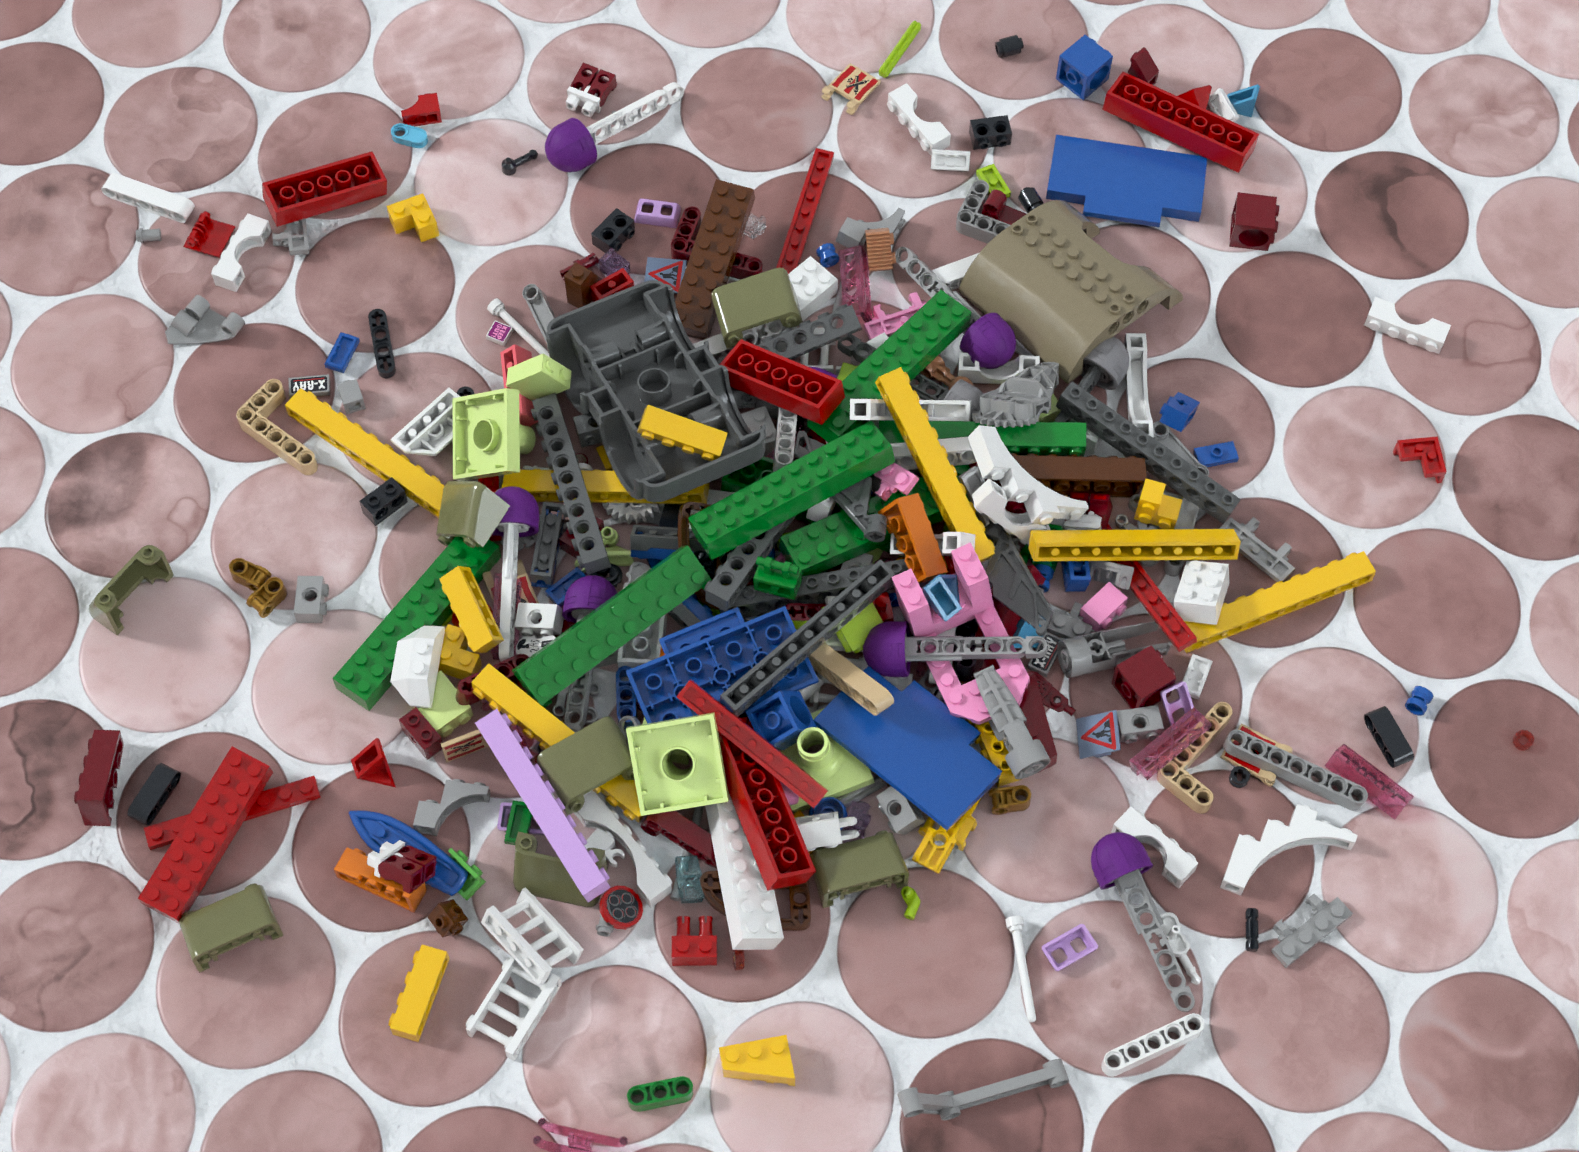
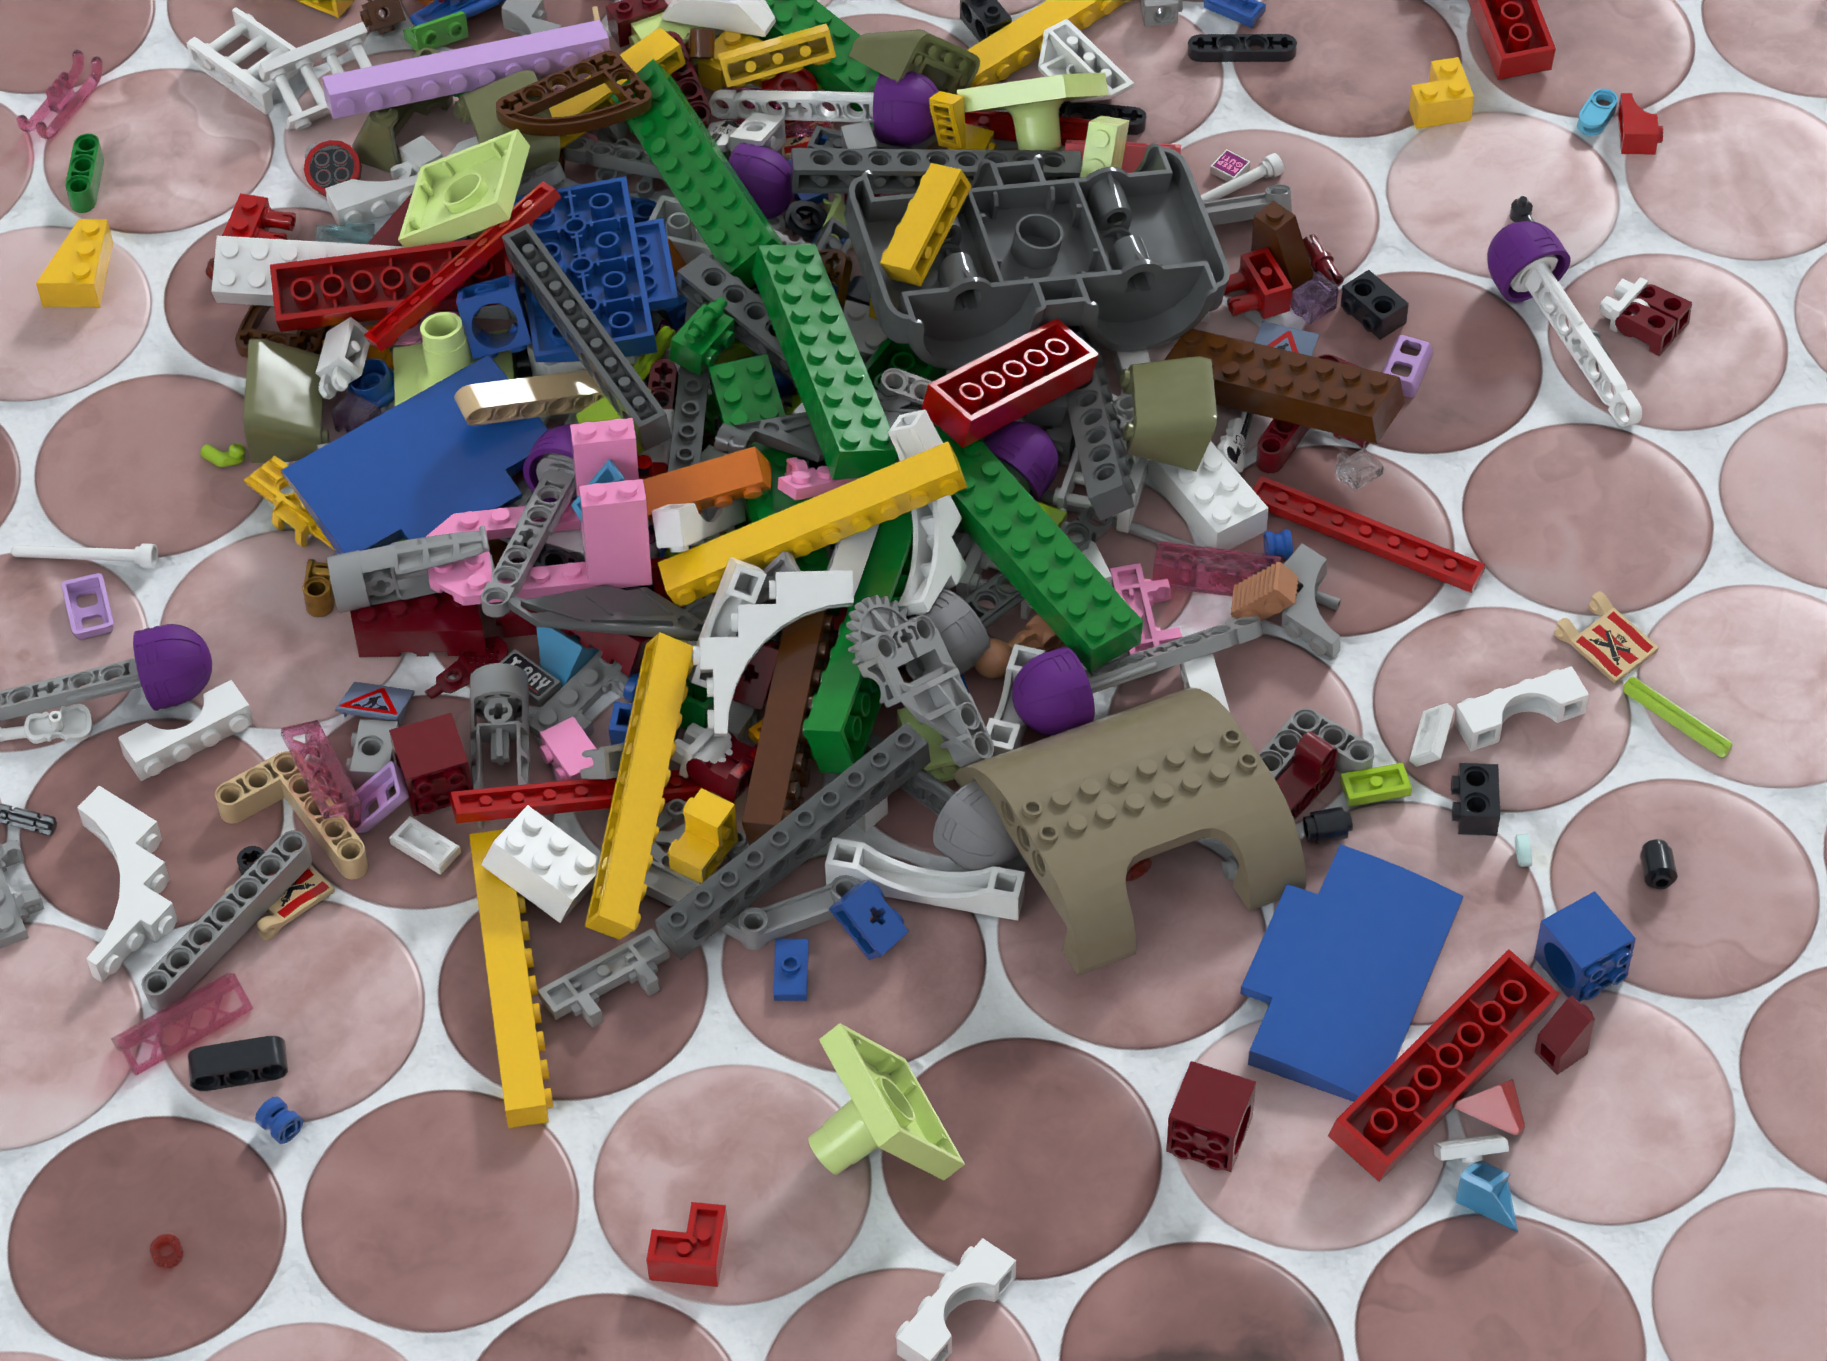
camera: 105 degrees right, 10 degrees down
(465, 665) = (700, 43): none -> reddish brown piece
(523, 477) = (956, 113): none -> yellow slope
(541, 696) = (606, 67): none -> reddish brown beam
(553, 537) = (858, 136): none -> light grey brick
(1018, 107) = (1523, 850): none -> light aqua tile
(1316, 370) = (883, 1113): none -> yellowish green piece

